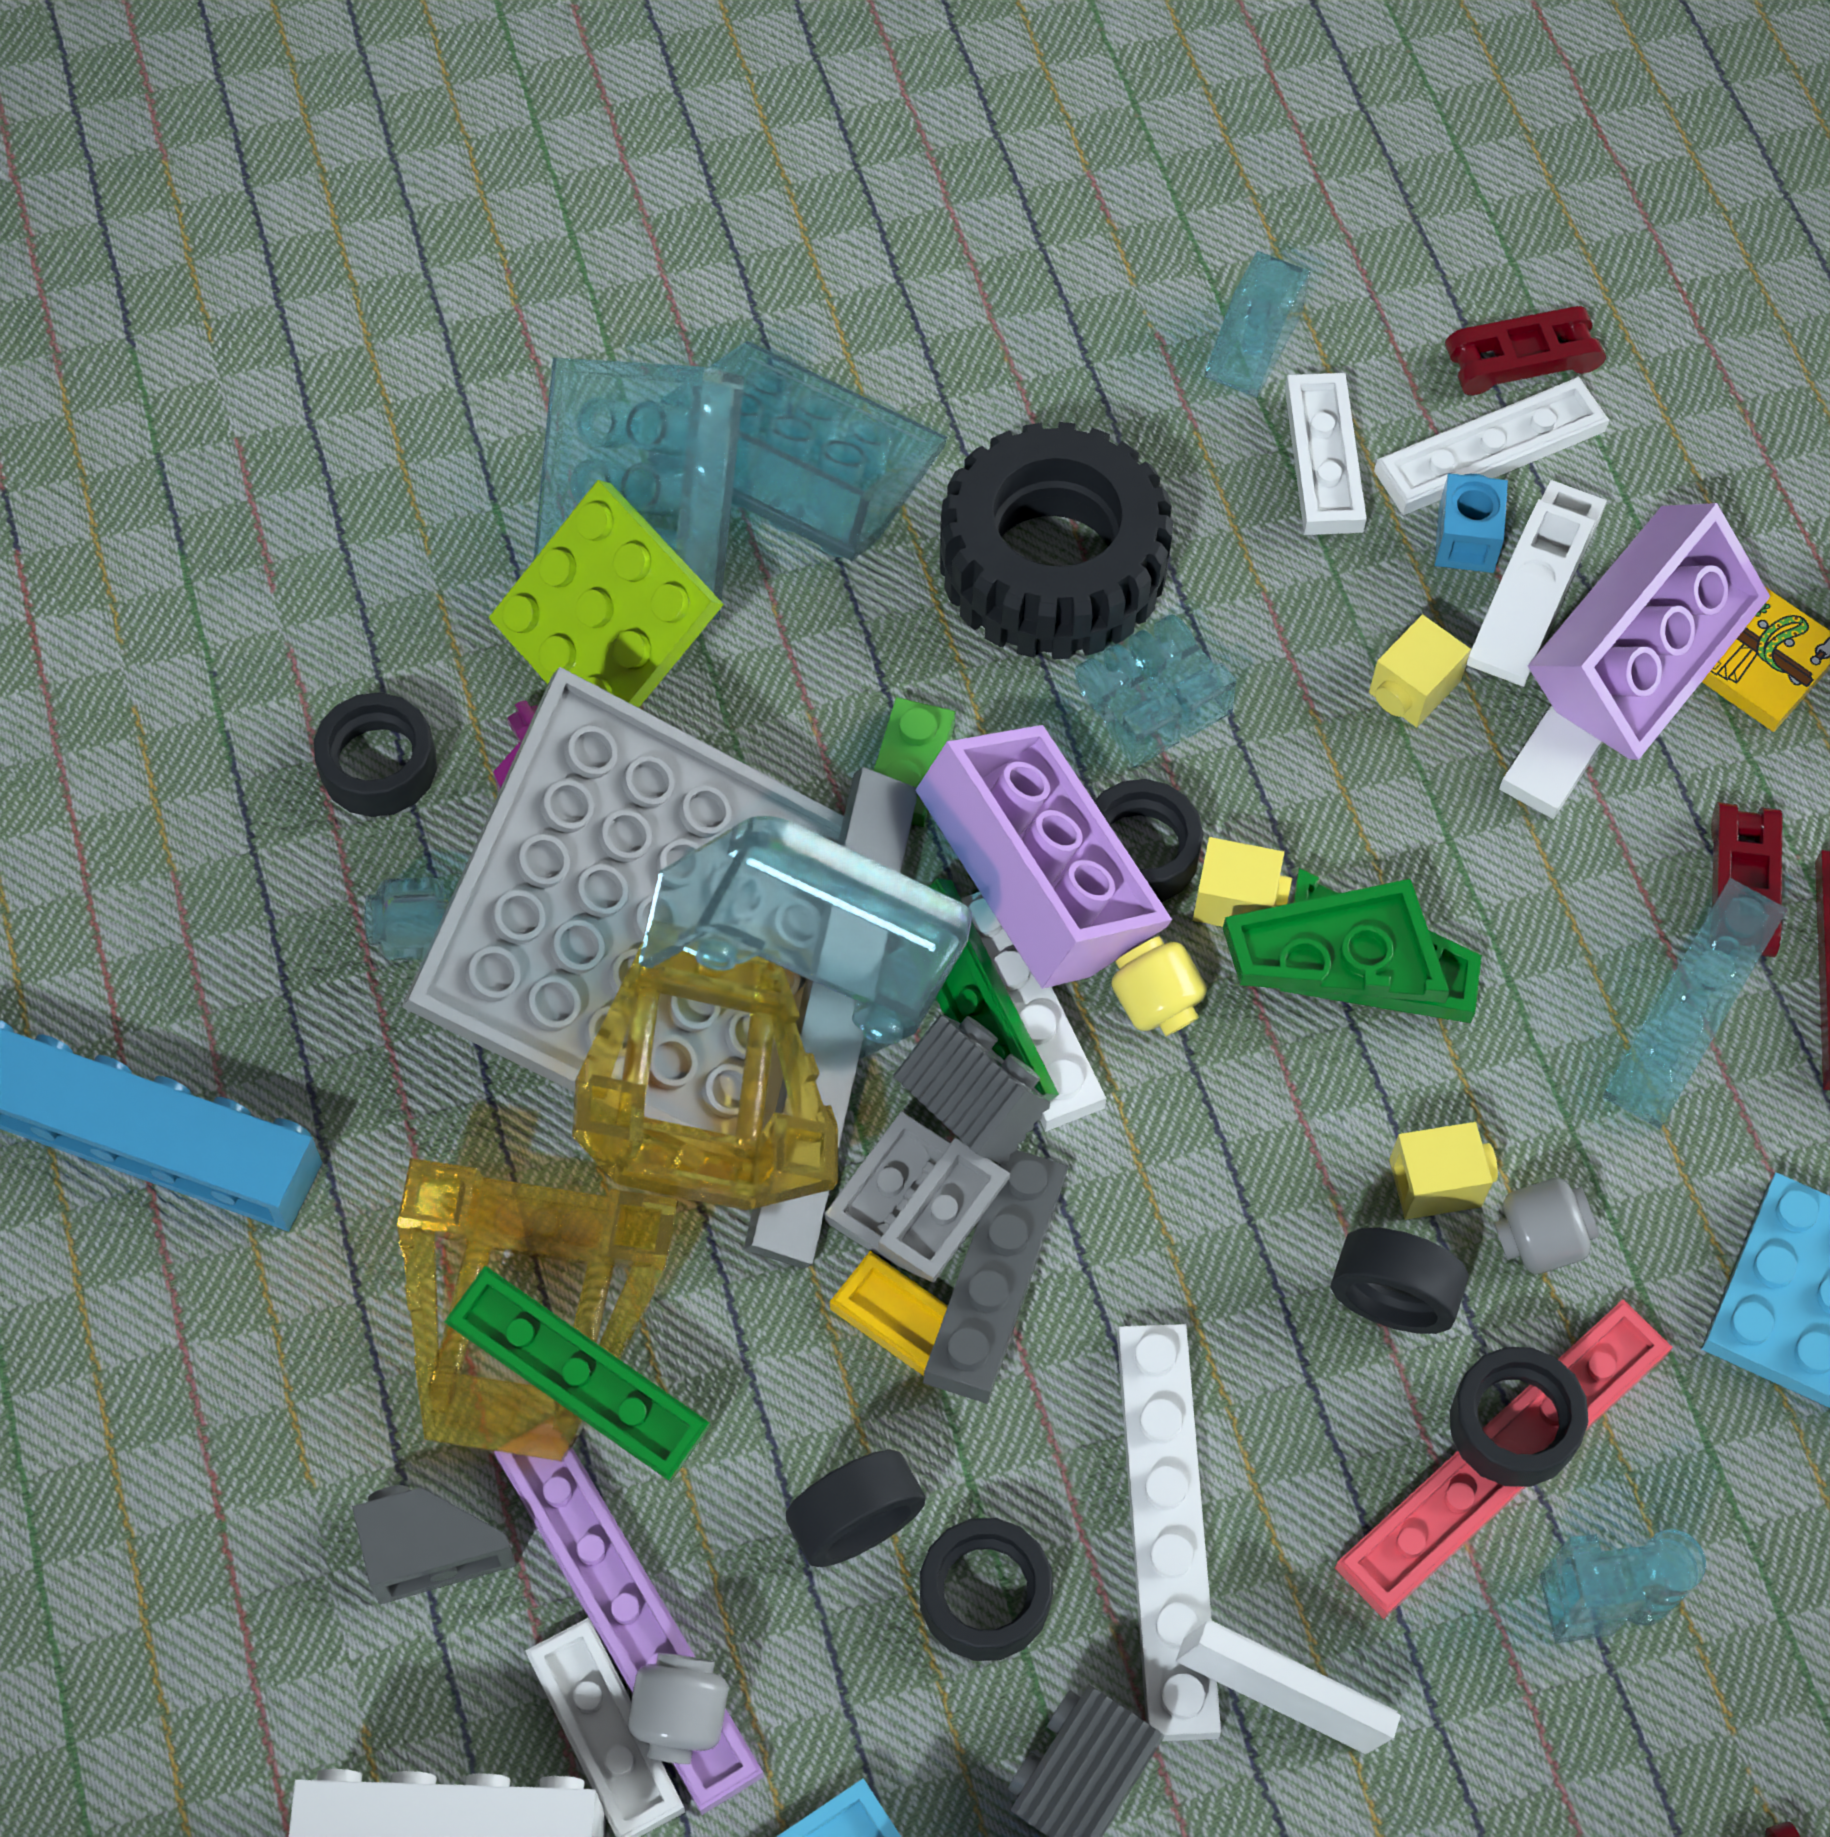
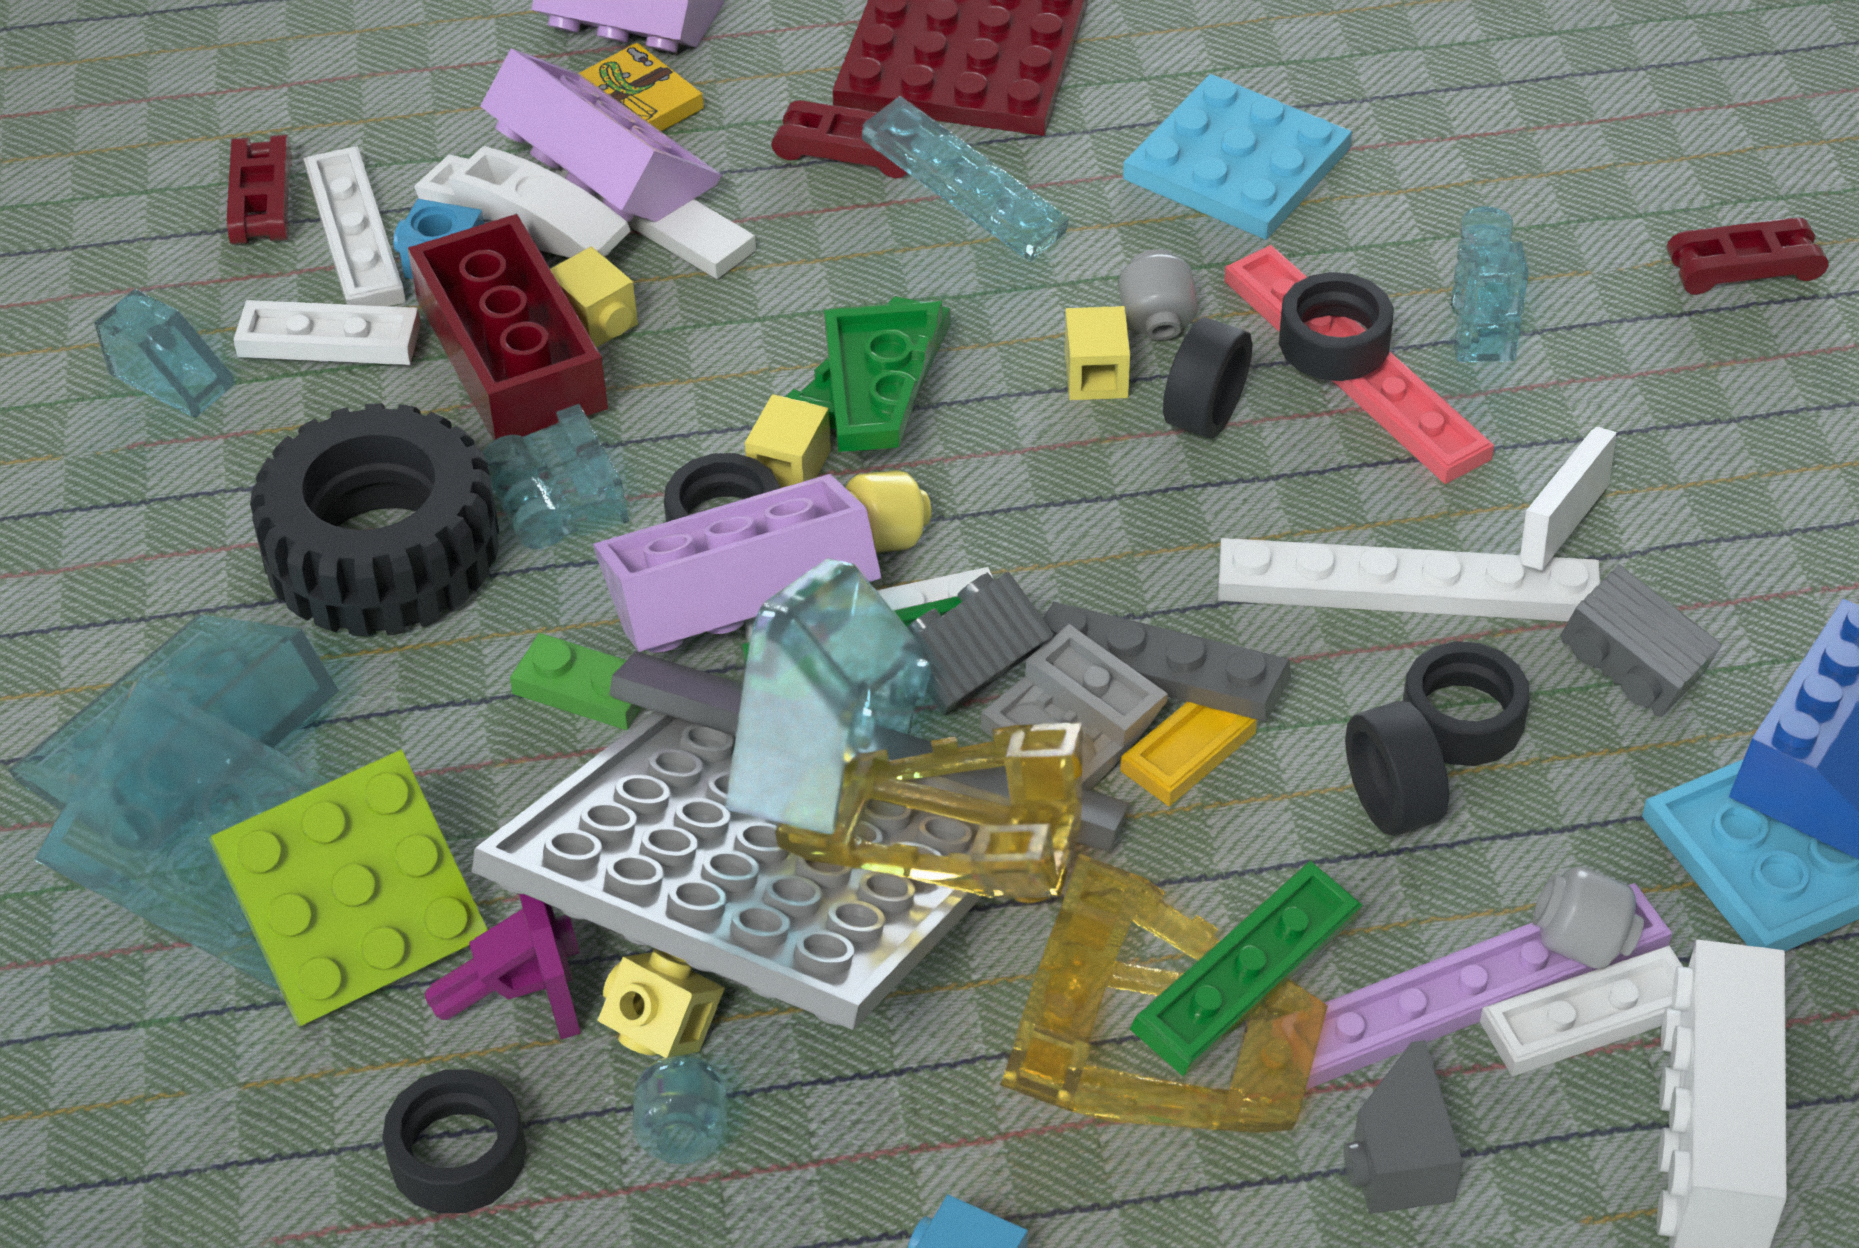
camera: 80 degrees left, 15 degrees down
(1341, 598) = (507, 327): none -> dark red brick

